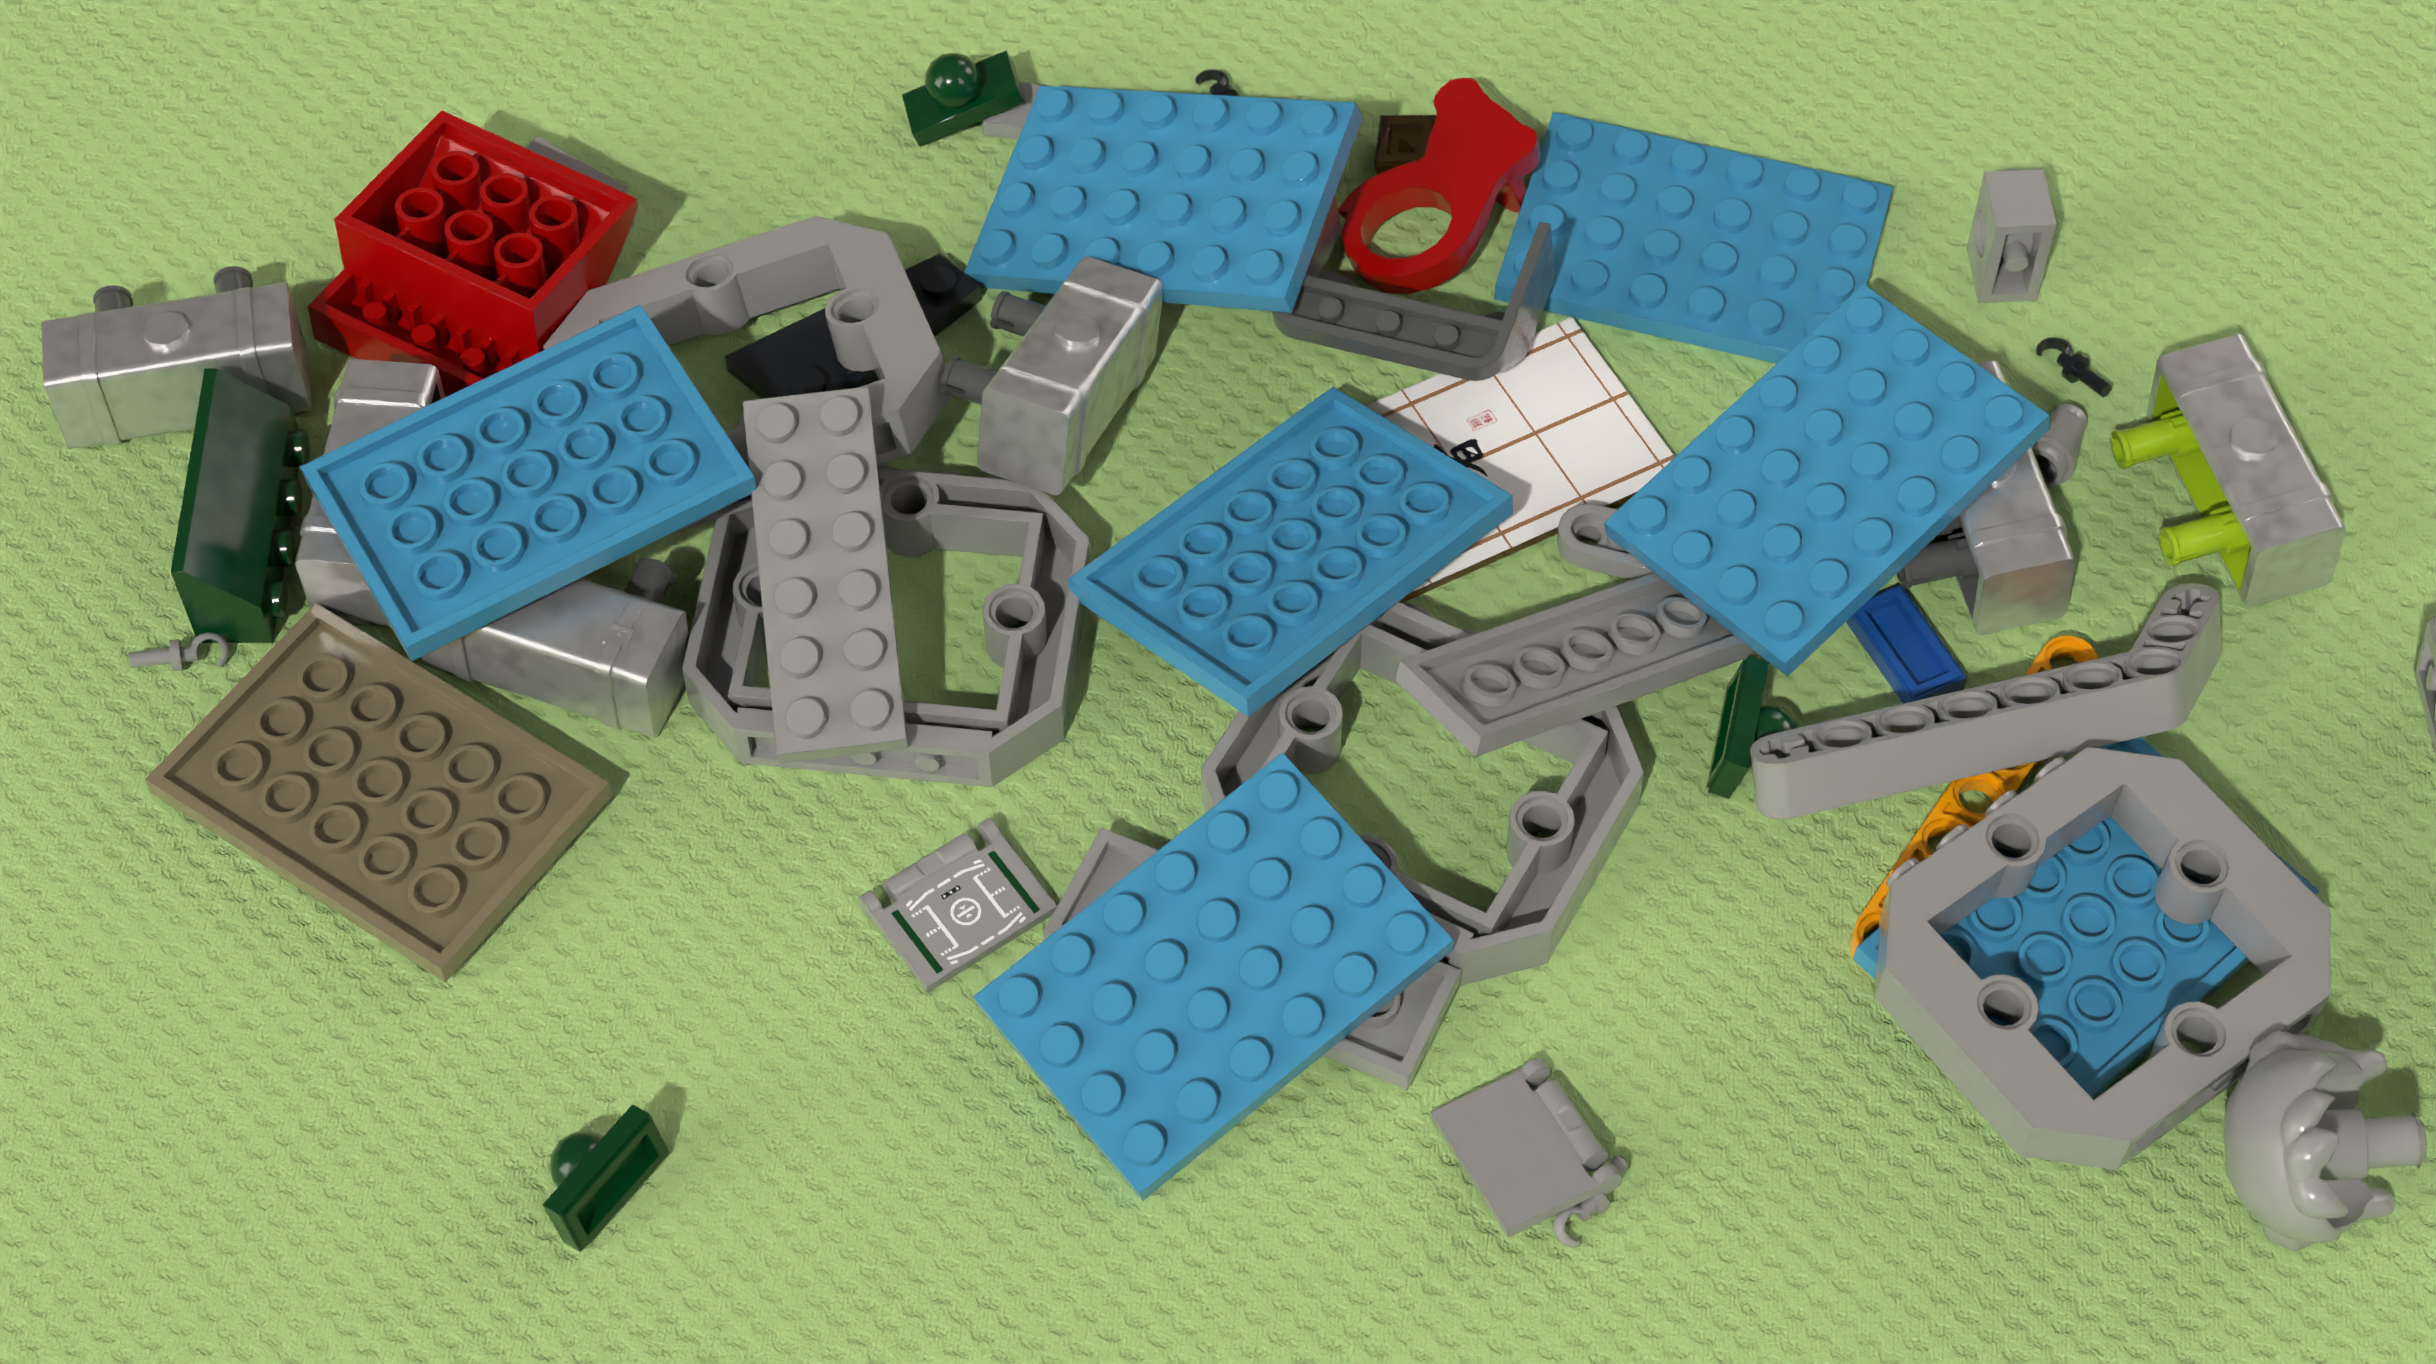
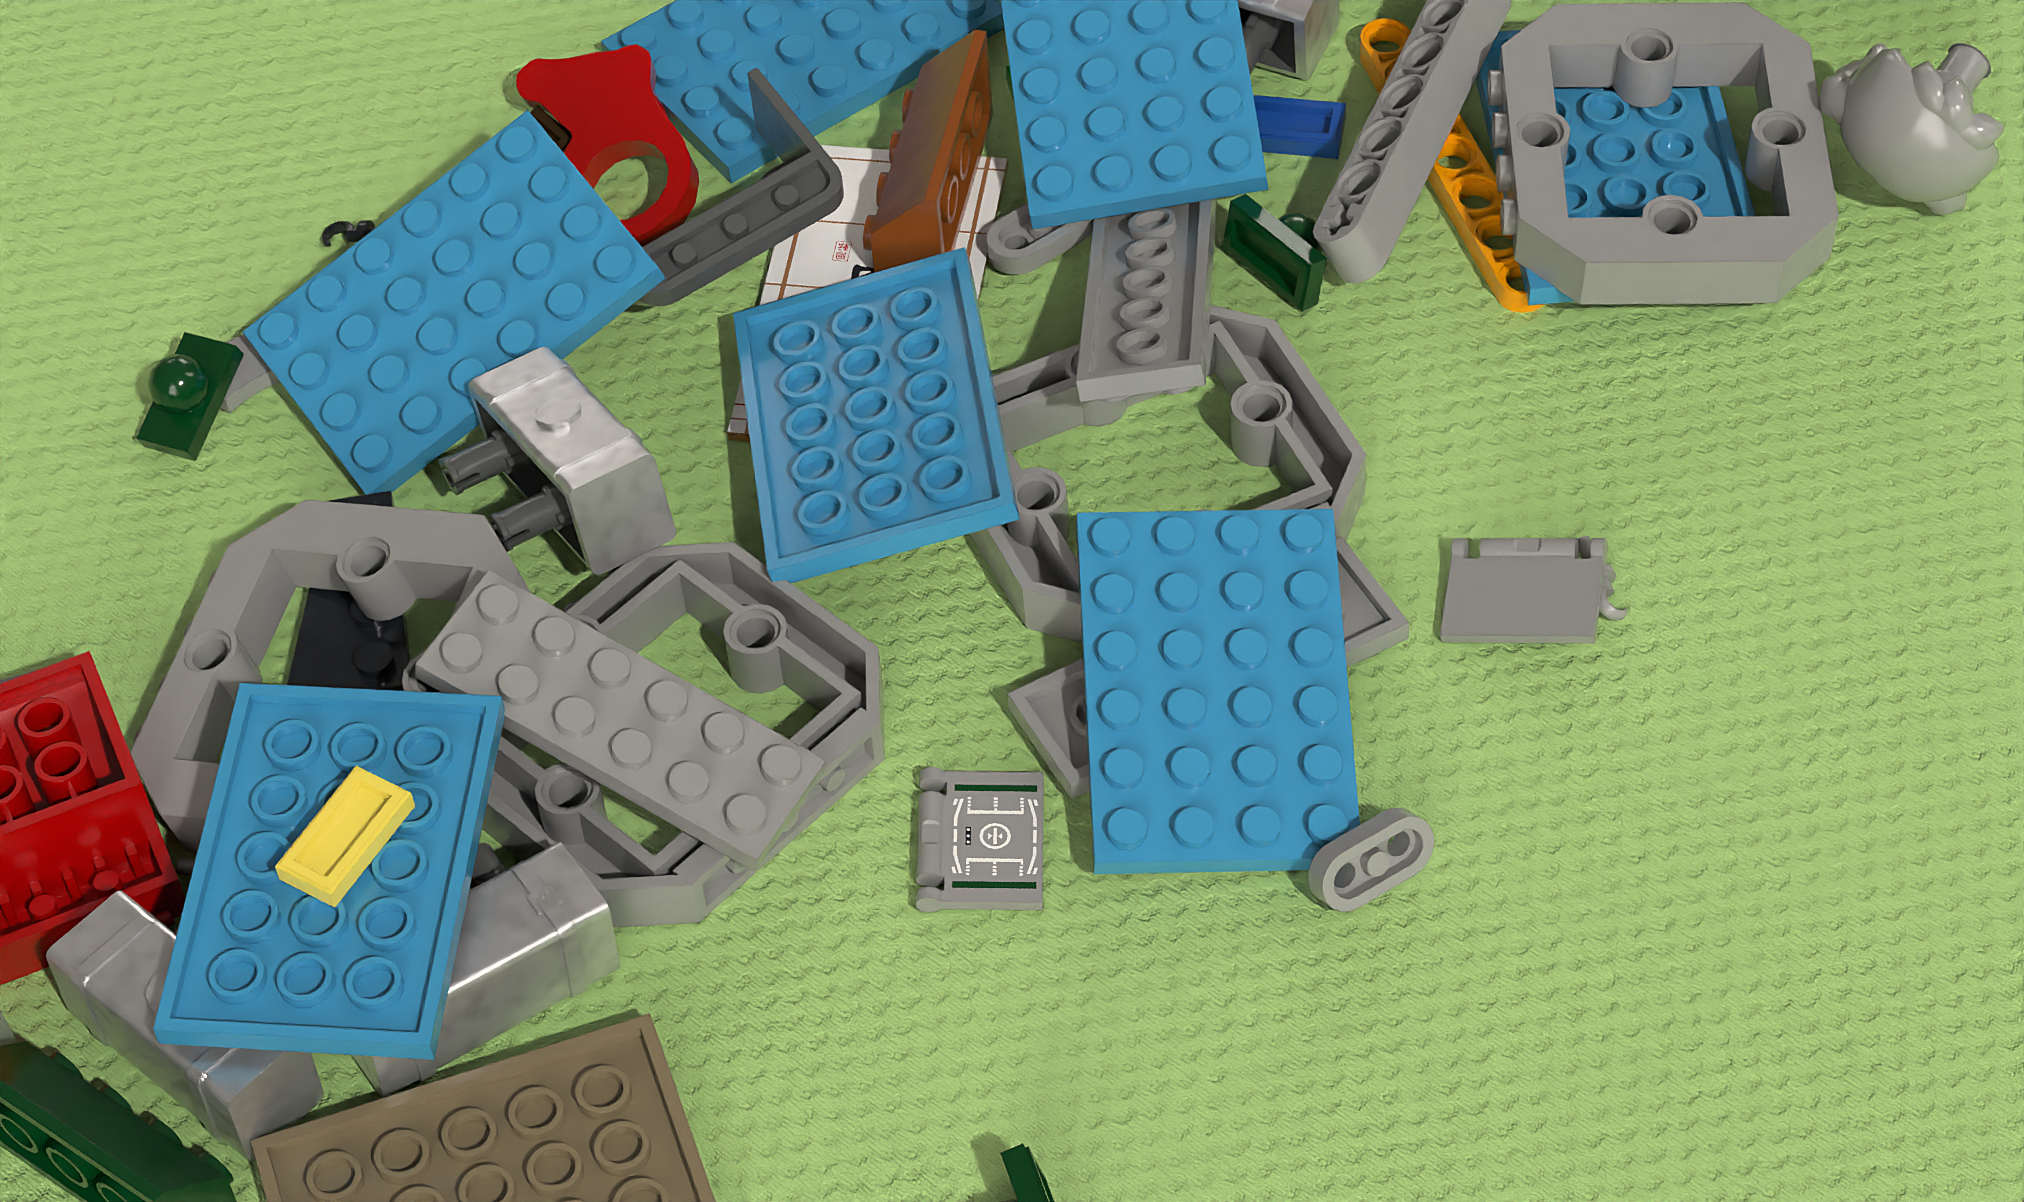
camera: 50 degrees left, 5 degrees down
(545, 465) = (345, 836): none -> light yellow tile
(1139, 1202) = (1367, 862): none -> light grey plate
(1605, 422) = (933, 157): none -> dark orange slope

